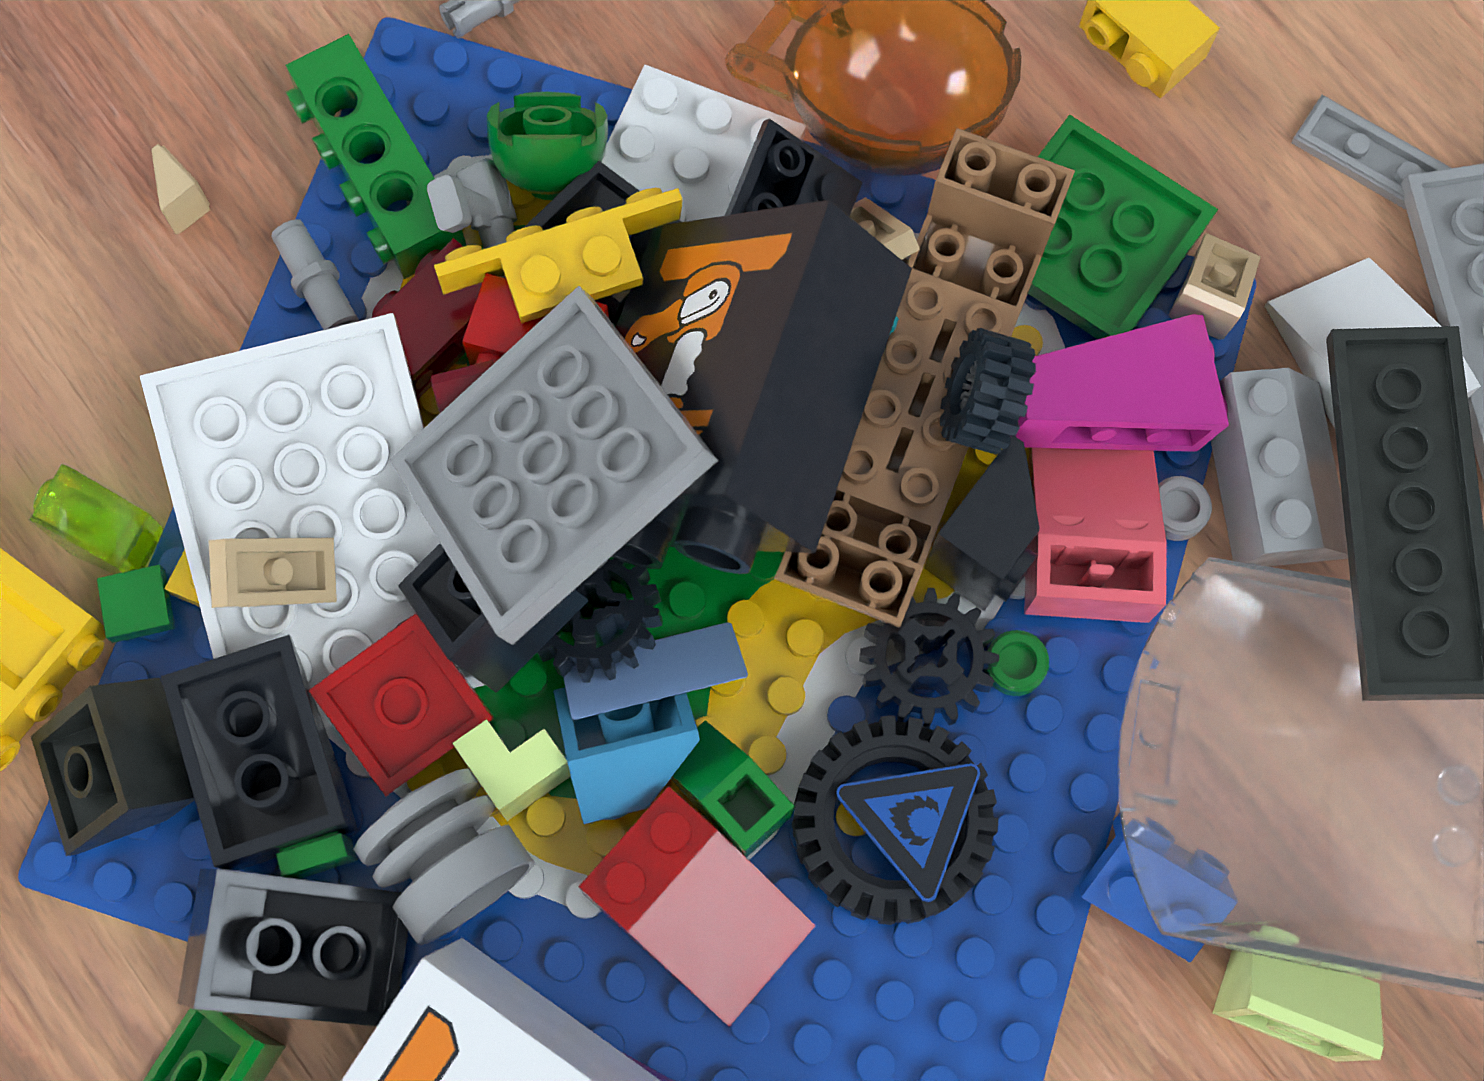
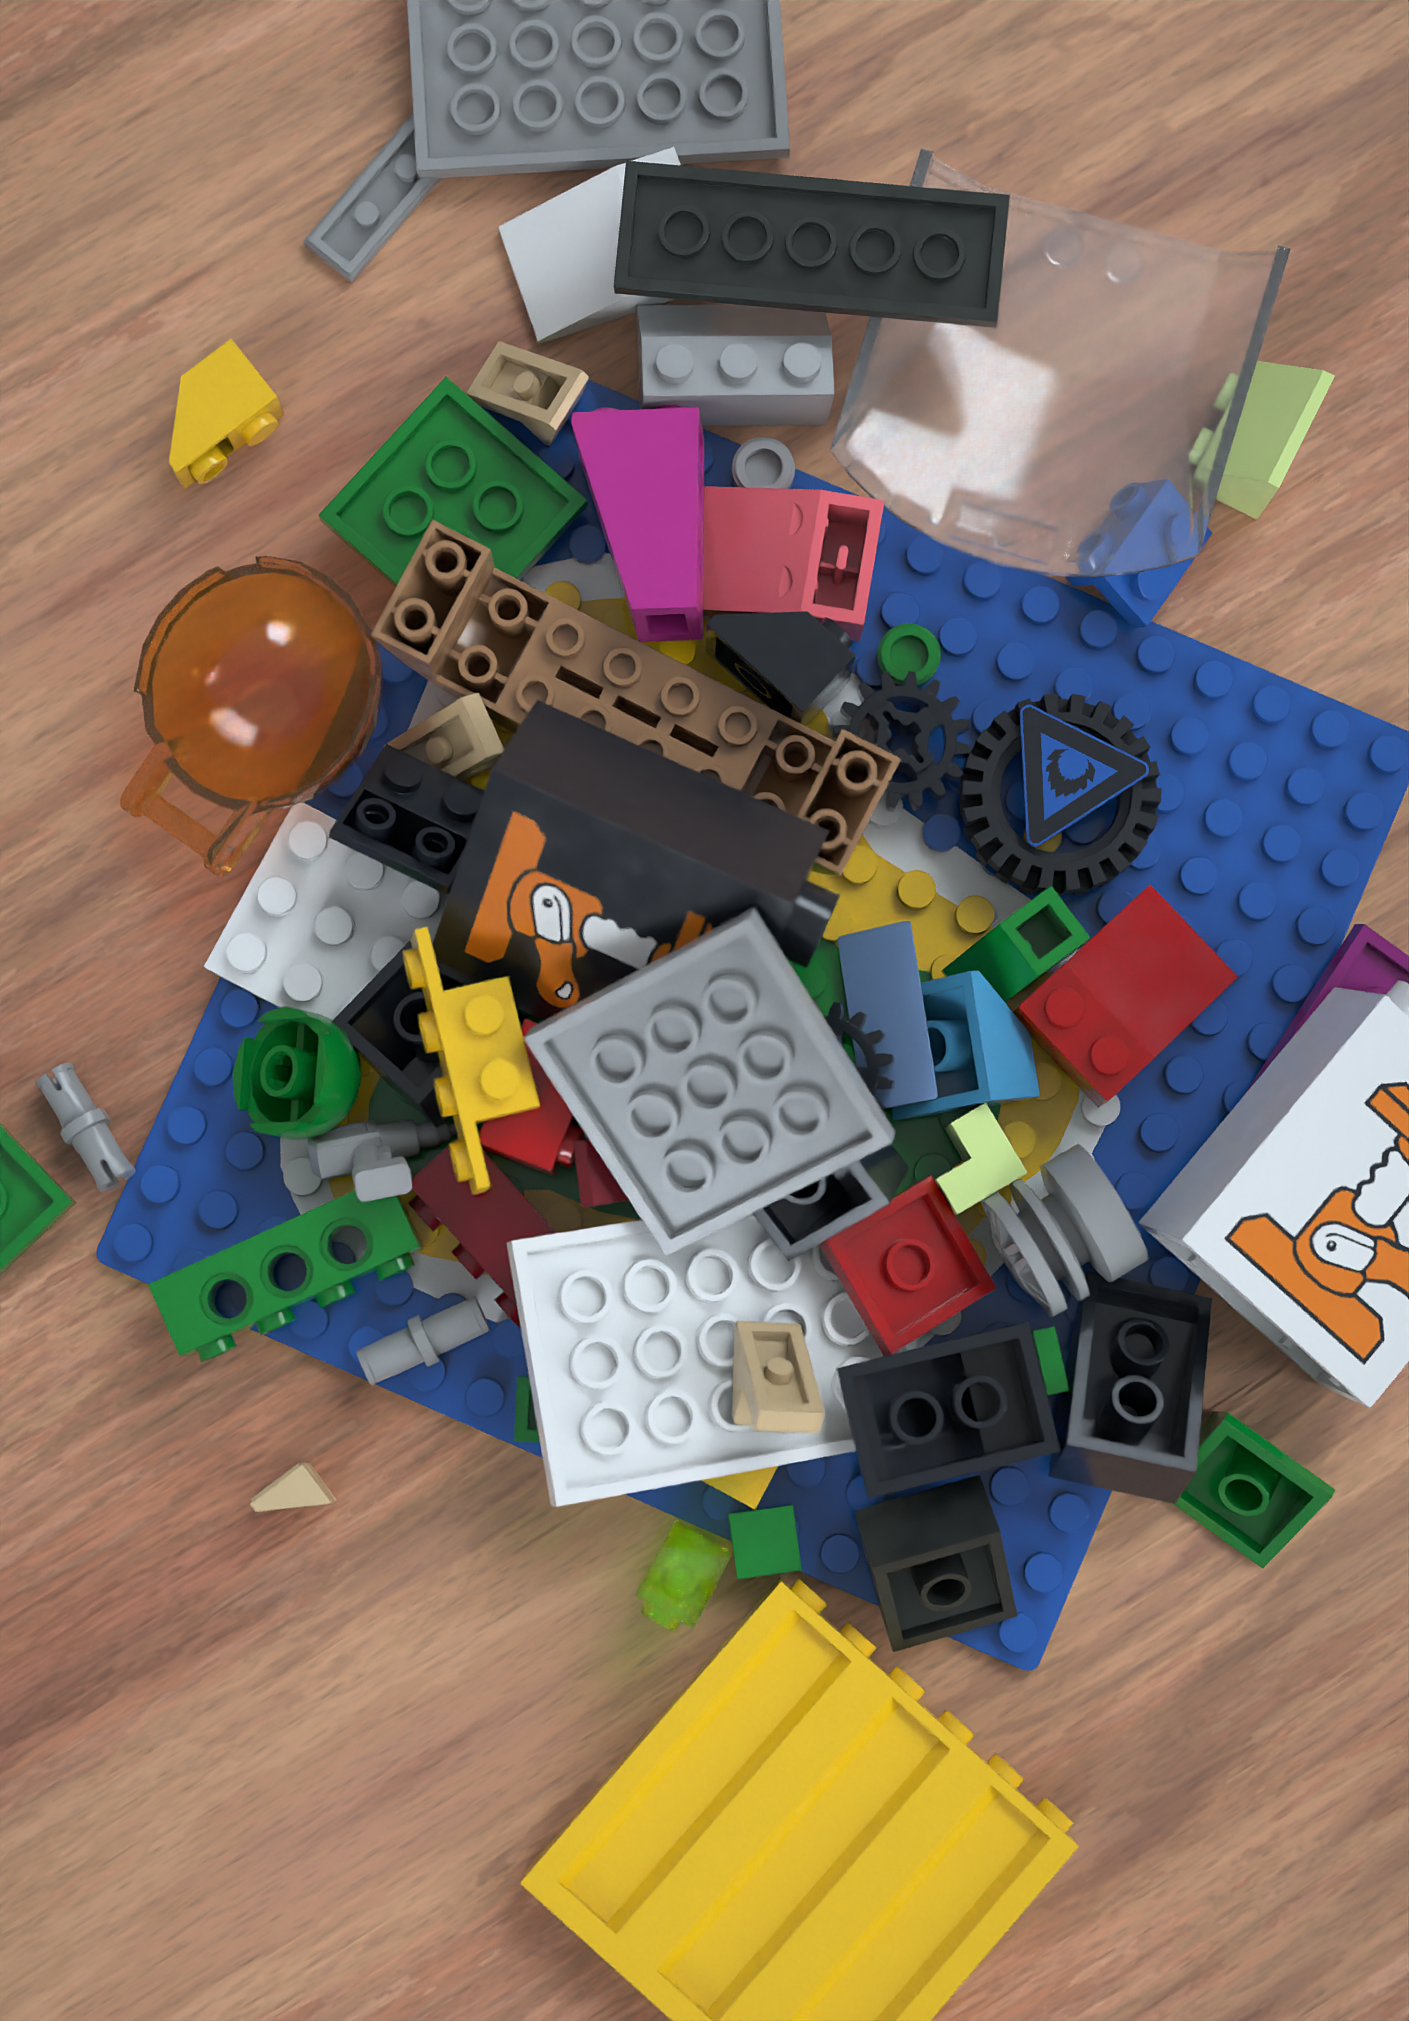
camera: 85 degrees left, 10 degrees up
(987, 391) = (664, 642): black bush -> none

